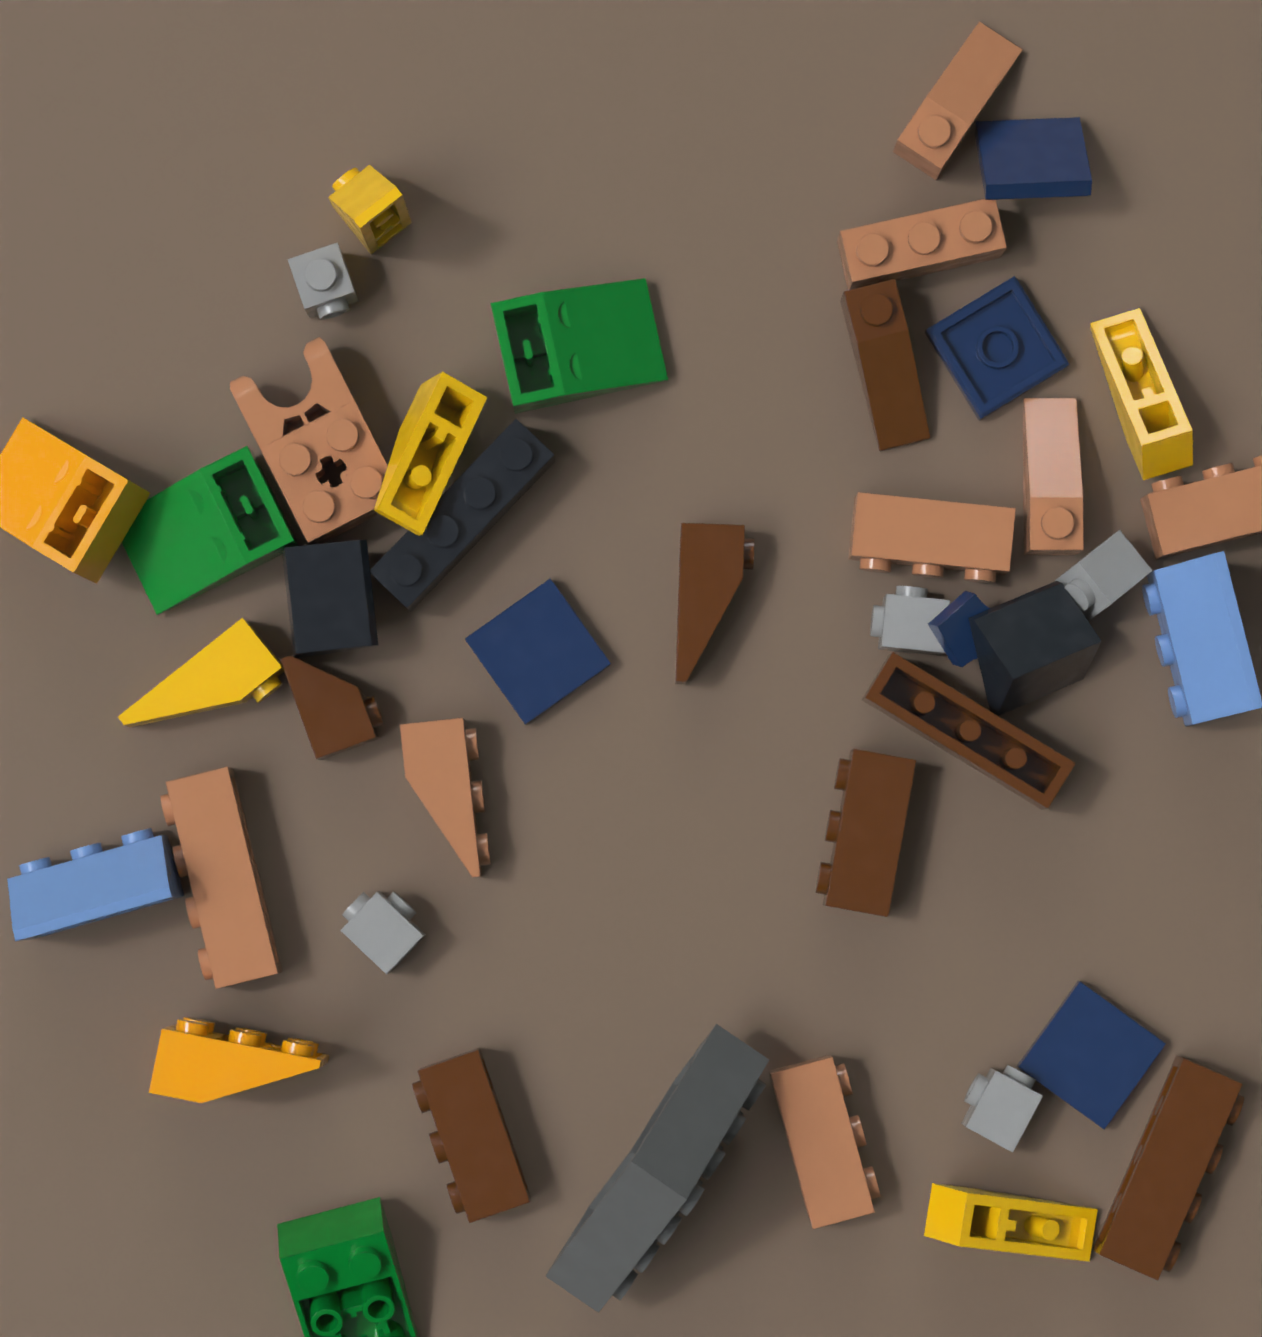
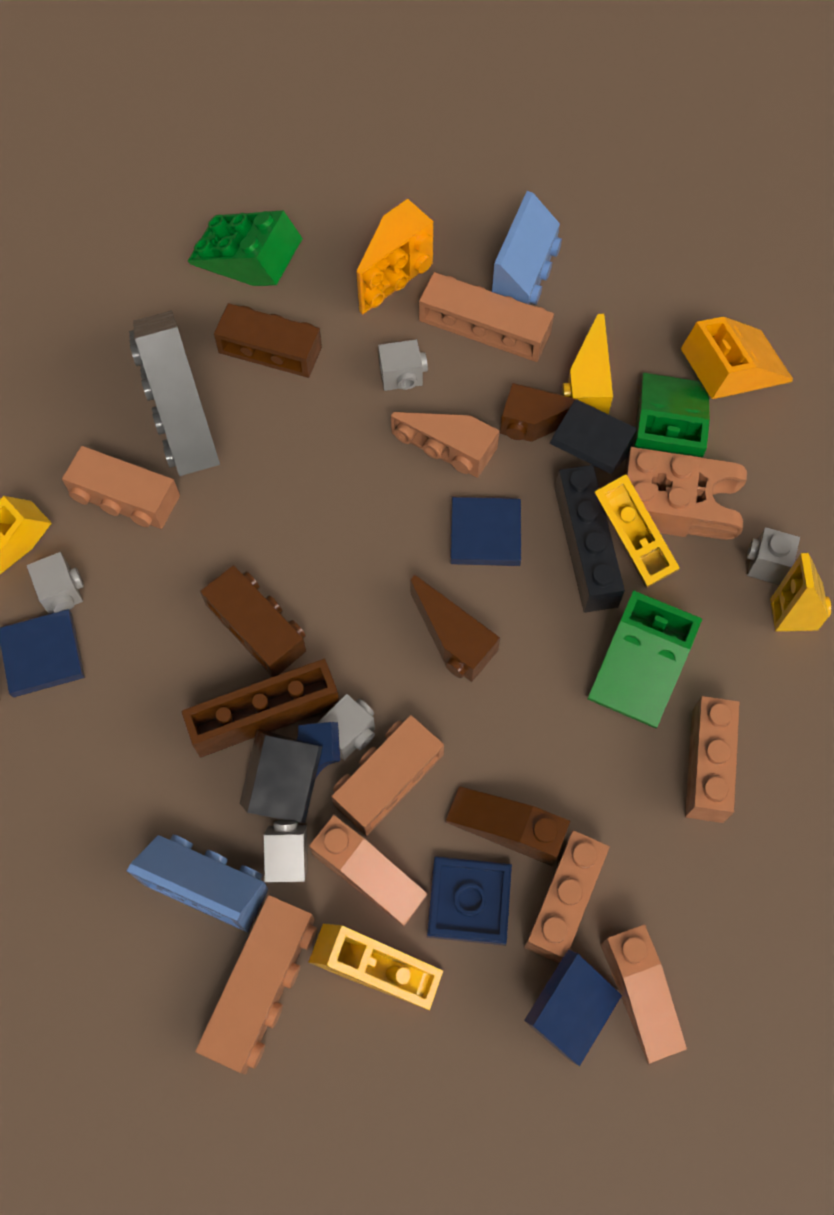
camera: 130 degrees right, 20 degrees down
(644, 189) = (712, 760): none -> nougat brick

